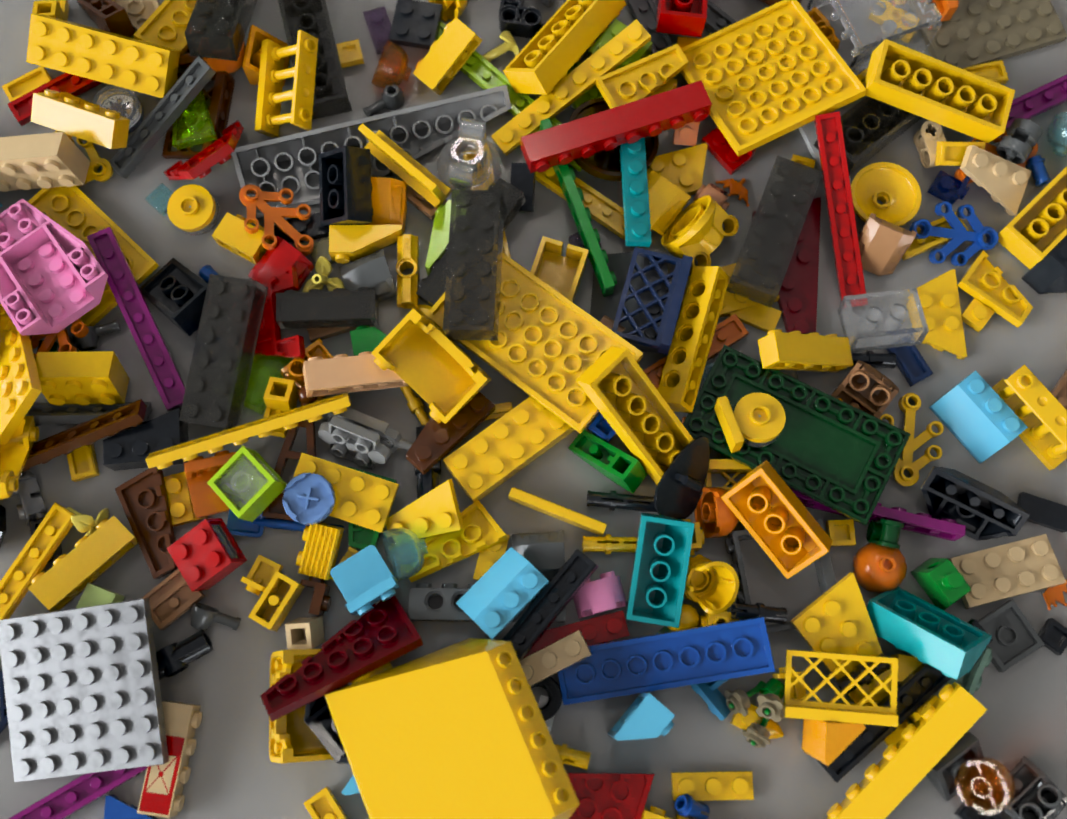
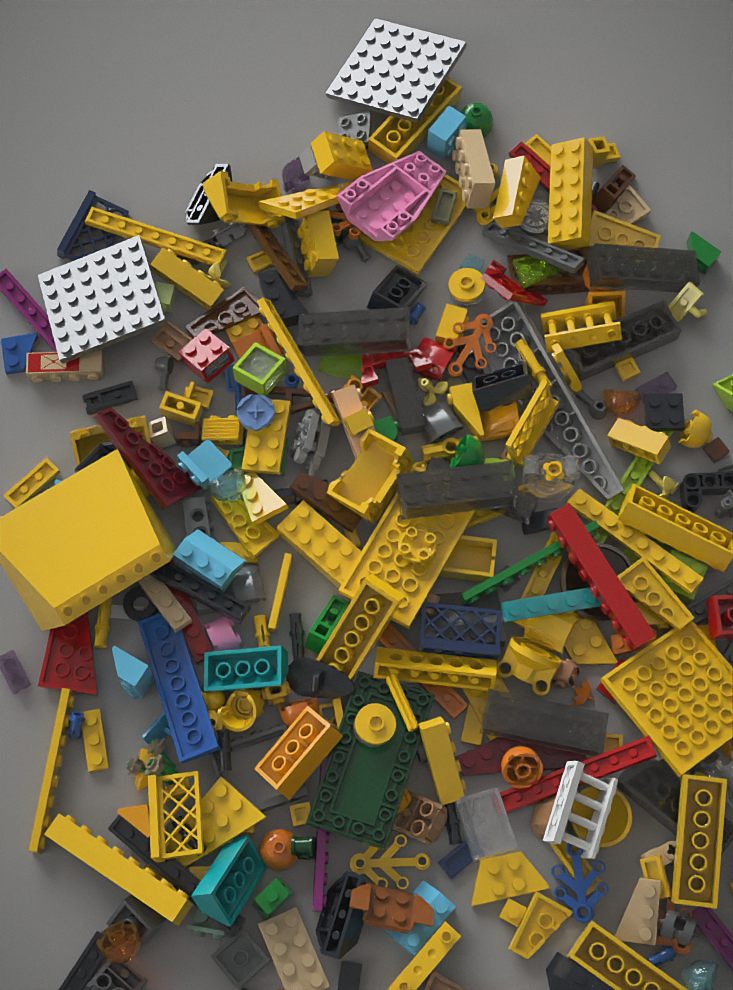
camera: 80 degrees right, 5 degrees down
(73, 213) = (444, 207): none -> olive tile
(138, 318) = (373, 269): magenta plate -> none
(177, 656) = (134, 355): black piece -> none
(232, 699) = (110, 397): none -> black plate
(272, 447) = (291, 381): none -> blue pin
(279, 397) = (329, 378): yellow brick -> none
(312, 150) = (537, 372): none -> yellow pin
(335, 111) = (566, 368): none -> yellow hinge
(359, 364) = (359, 422): none -> yellow brick
(427, 245) = (469, 452): none -> green cylinder
(470, 142) = (555, 465): none -> yellow plate
(539, 324) = (417, 545): none -> yellow dish
(729, 424) = (357, 705): yellow tile -> none
(733, 382) = (402, 702): none -> yellow axle
(821, 266) = (521, 767): none -> orange cylinder
(880, 220) = (562, 809): none -> white fence
(948, 188) = (626, 876): clear blue bracket -> none
(974, 439) = (391, 908): none -> dark orange piece

